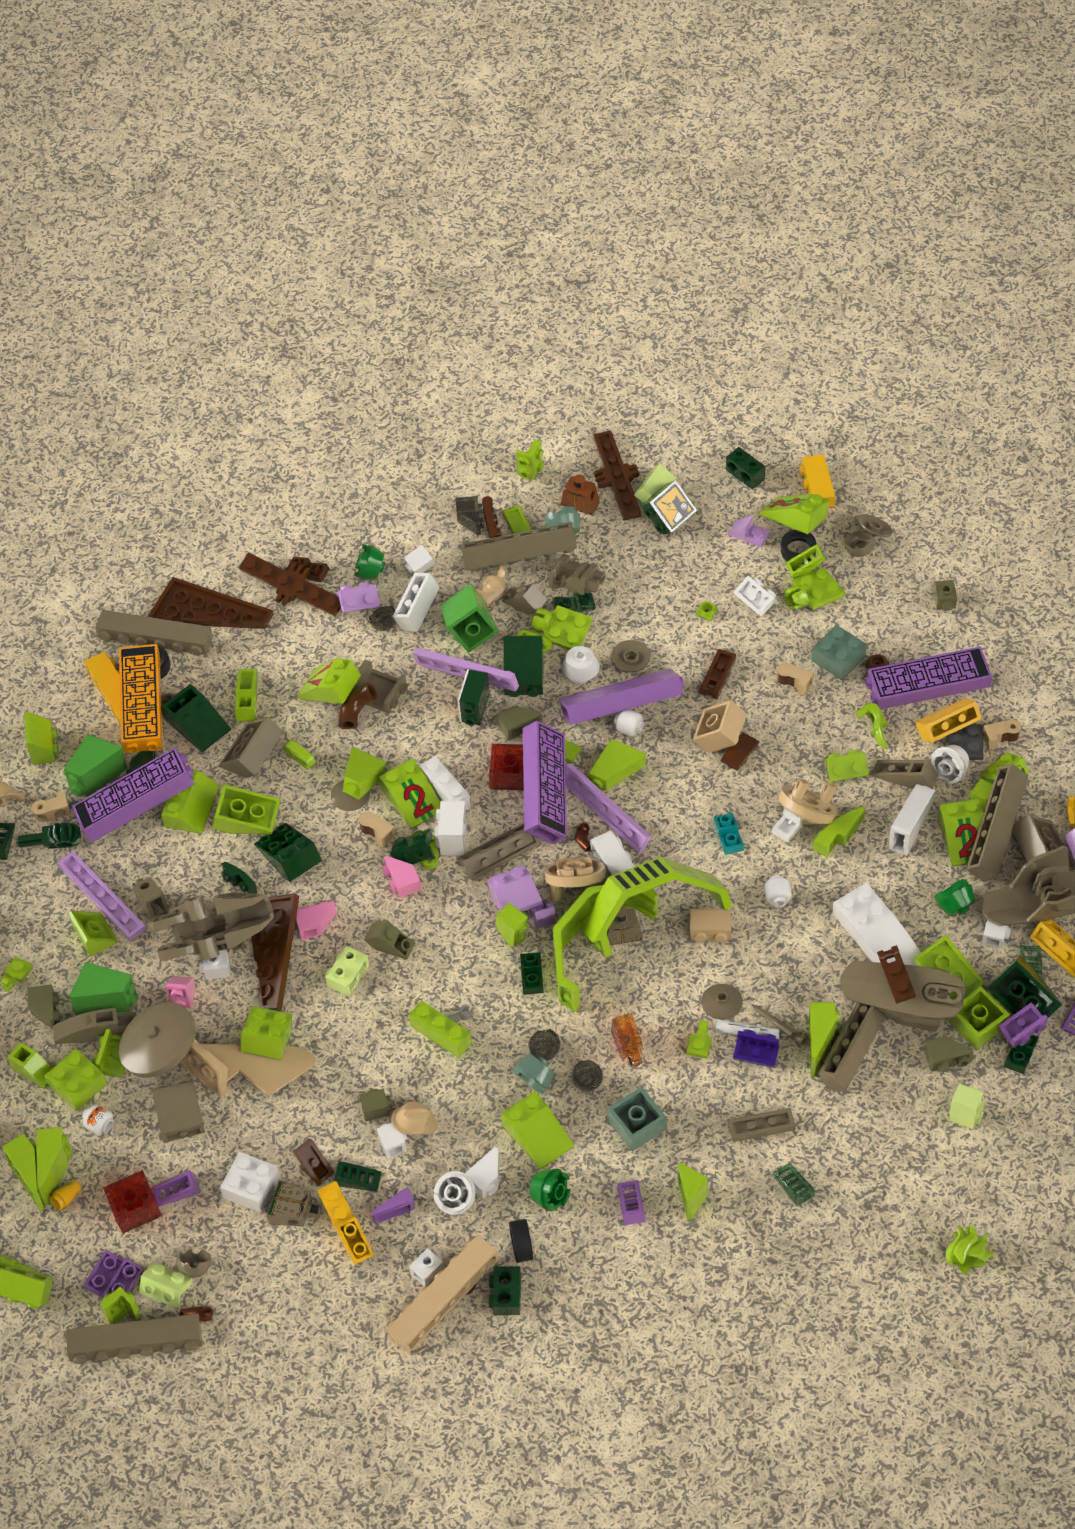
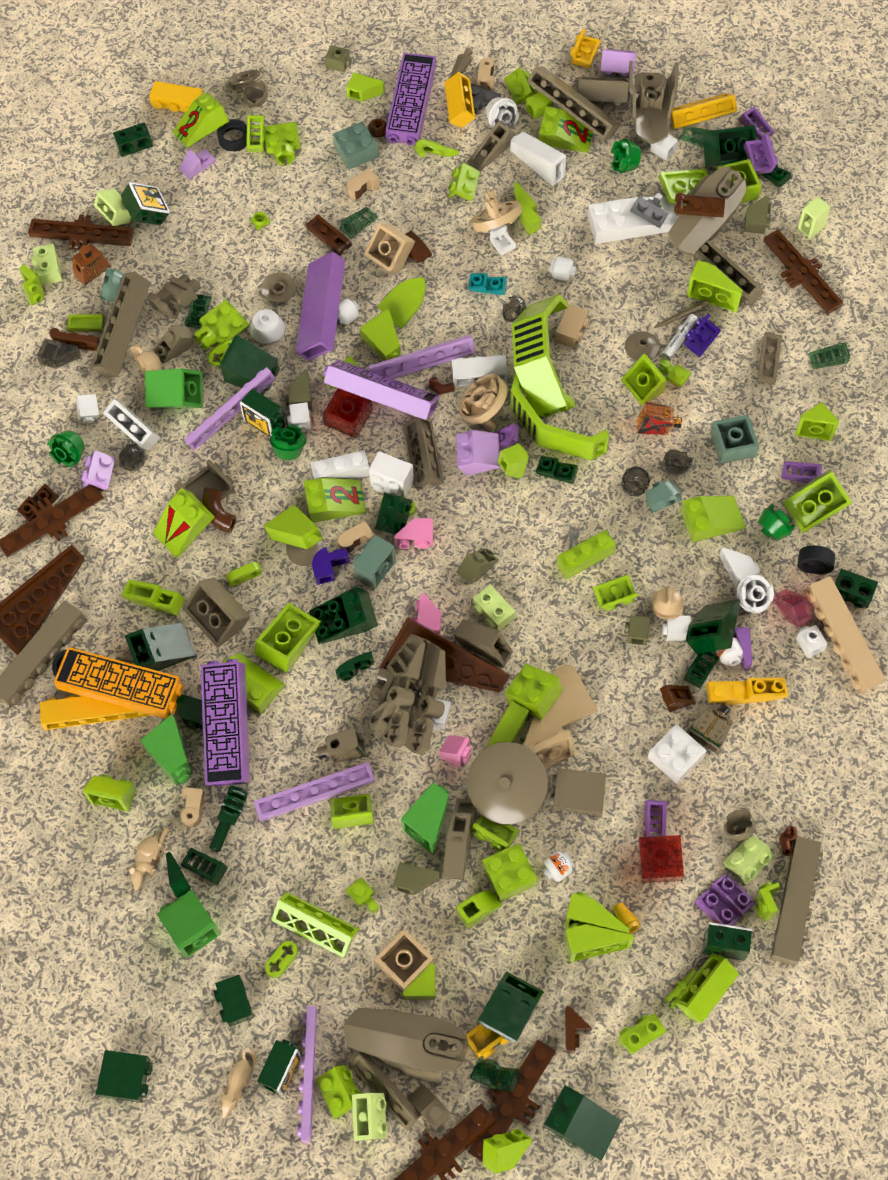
camera: 70 degrees left, 10 degrees up
(66, 1283) = (727, 941): none -> dark green piece
(220, 1027) = (510, 724): none -> lime slope
(304, 975) = (484, 641): none -> dark tan slope
(334, 813) = (324, 561): none -> dark purple brick
(350, 850) = (374, 562): none -> sand green brick
(382, 1192) = (731, 656): none -> white head
(398, 1164) = (713, 627): none -> dark green slope
(408, 1070) = (614, 592): none -> lime bracket
(453, 730) = (287, 442): none -> green cone
(456, 1237) = (793, 607): none -> clear pink slope
(489, 732) = (299, 416): none -> white brick
(565, 464) = (46, 264): none -> yellowish green brick
(596, 1221) = (817, 501): none -> lime slope
(667, 766) = (404, 300): none -> lime shield
(674, 1015) = (645, 380): none -> lime slope
(707, 864) = (516, 304): none -> clear smoke hair
(747, 698) = (351, 229): none -> clear green slope
(754, 596) = (266, 180): white bracket -> none
(887, 937) = (650, 210): none -> dark grey hinge
(894, 1123) = (802, 271): none -> reddish brown hinge
(919, 631) = (364, 87): none -> lime slope
(1010, 707) = (462, 62): none -> dark tan bar

